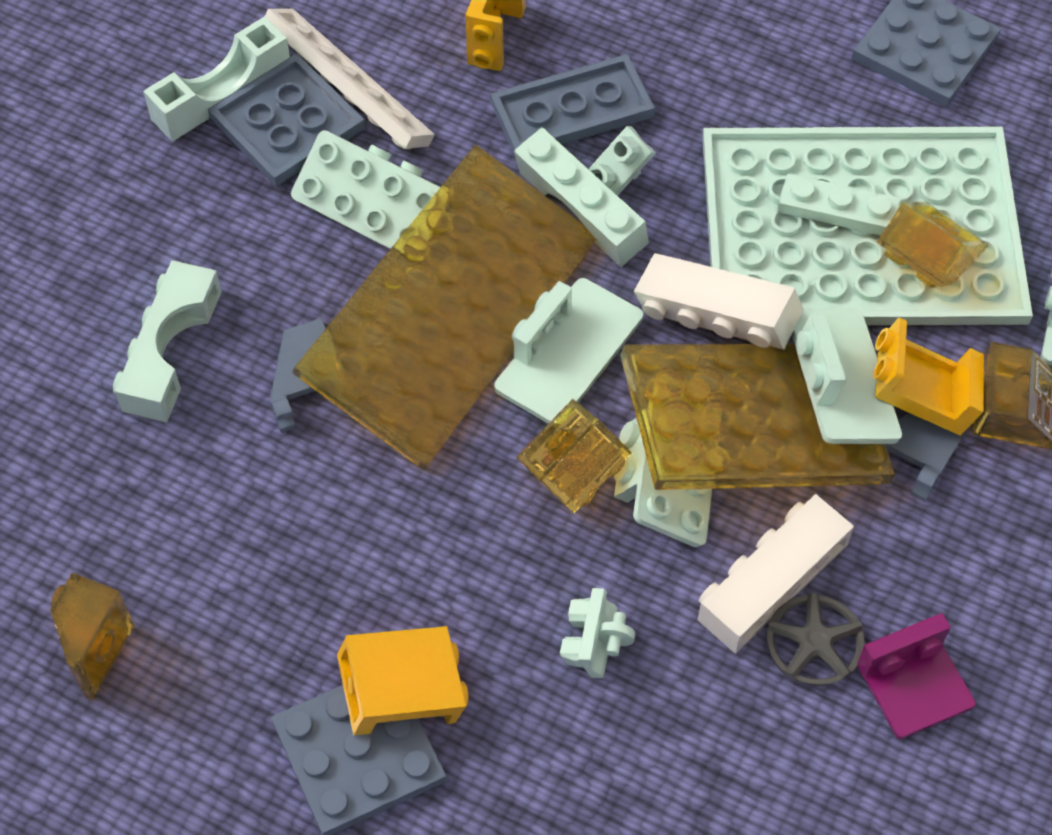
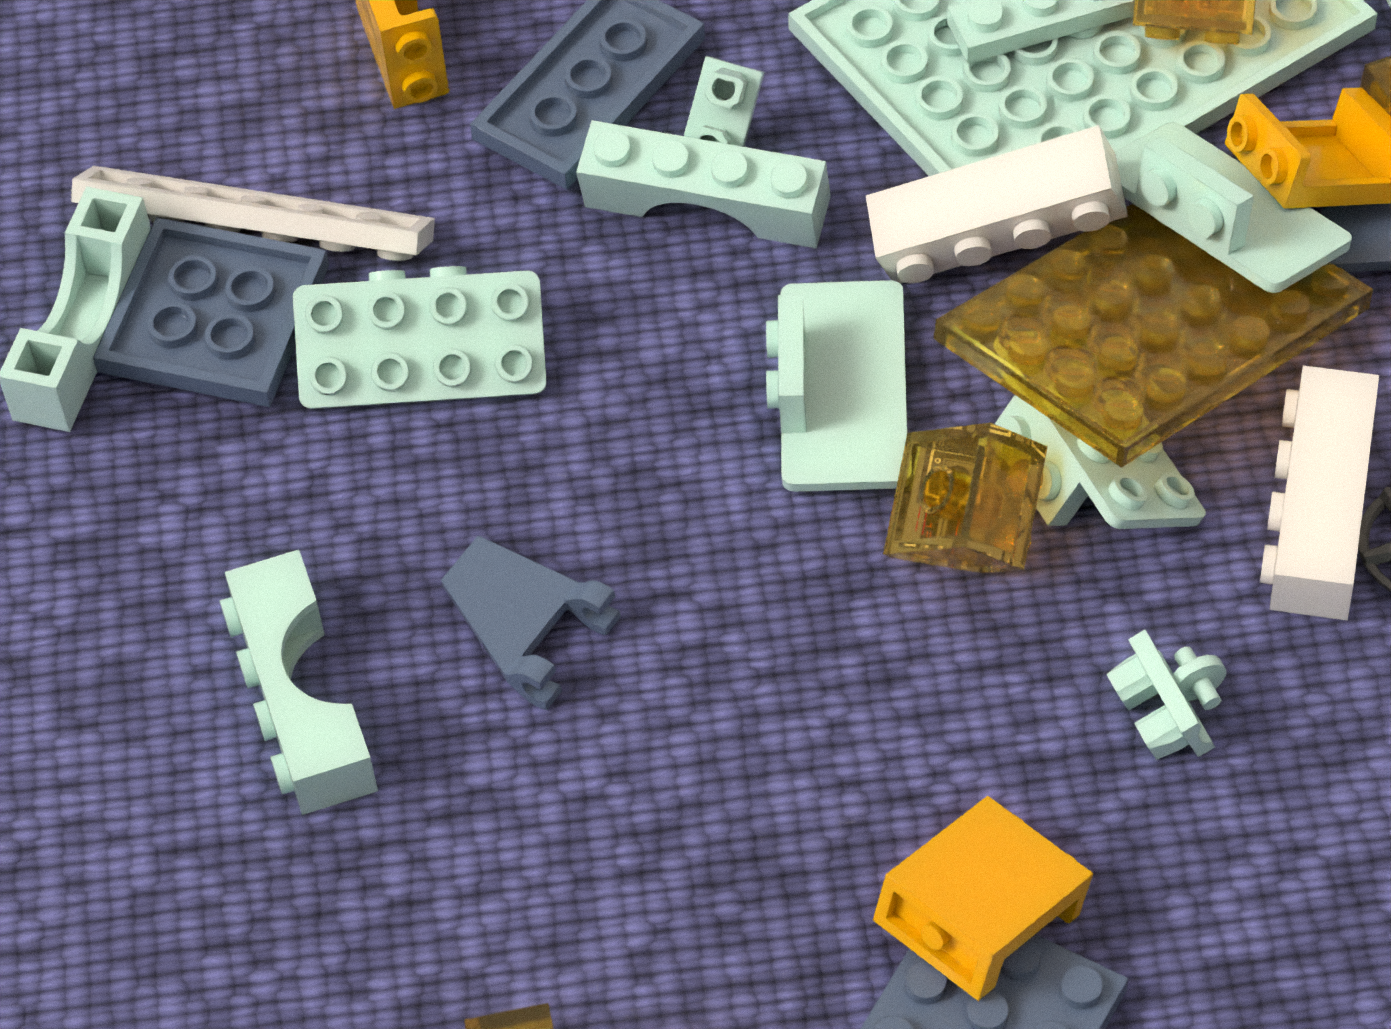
camera: 30 degrees left, 5 degrees down
(444, 307) = (647, 419): clear yellow plate -> none

